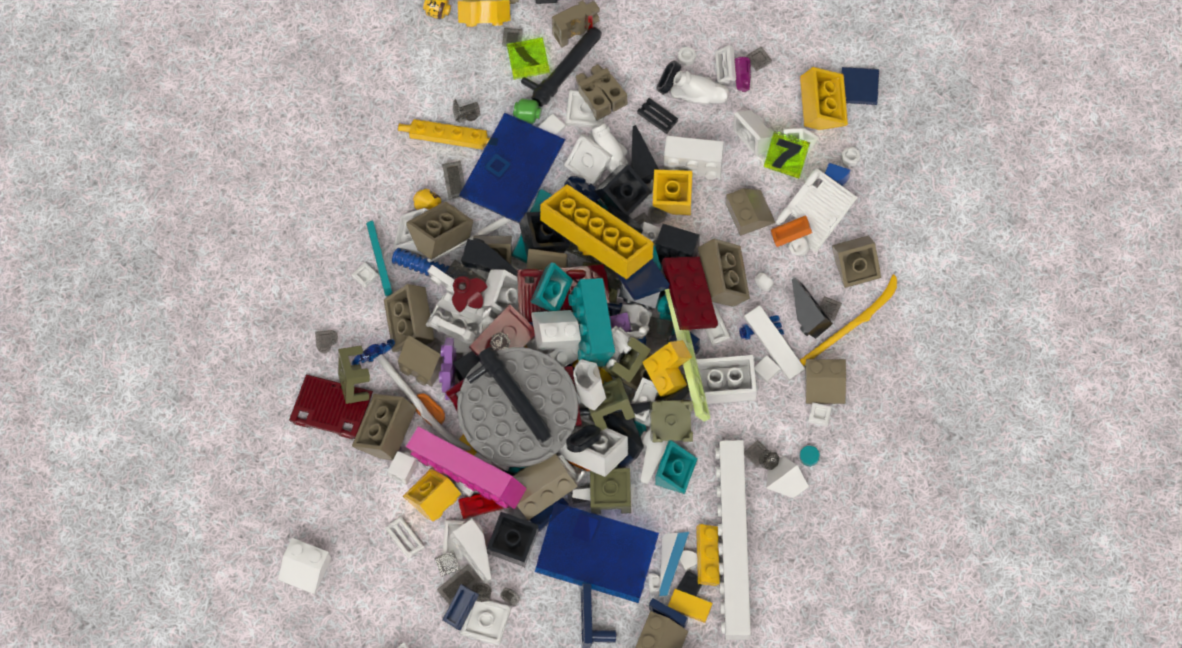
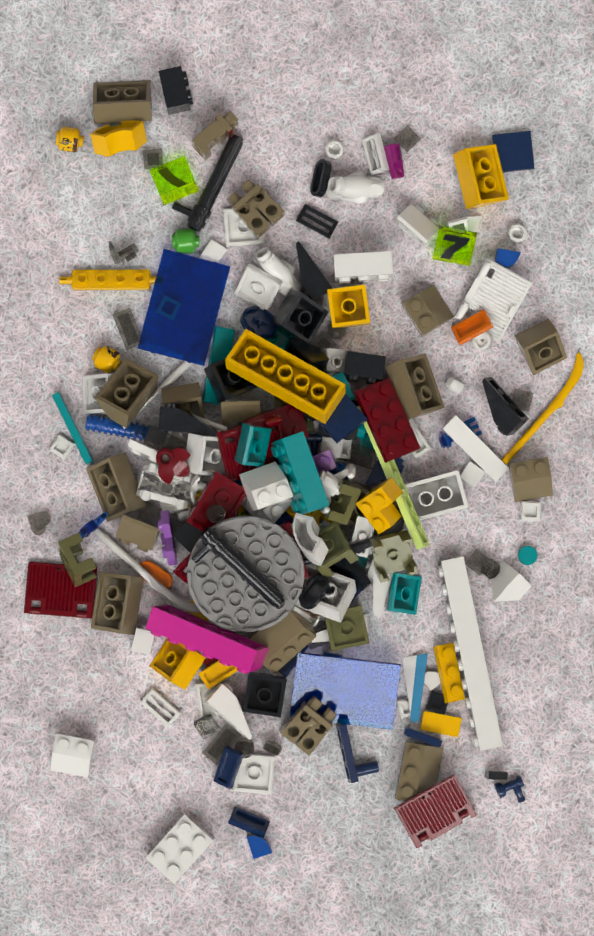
camera: 15 degrees left, 20 degrees up
(472, 509) = (216, 673): none -> yellow tile
(556, 574) = (308, 726): none -> dark tan hips

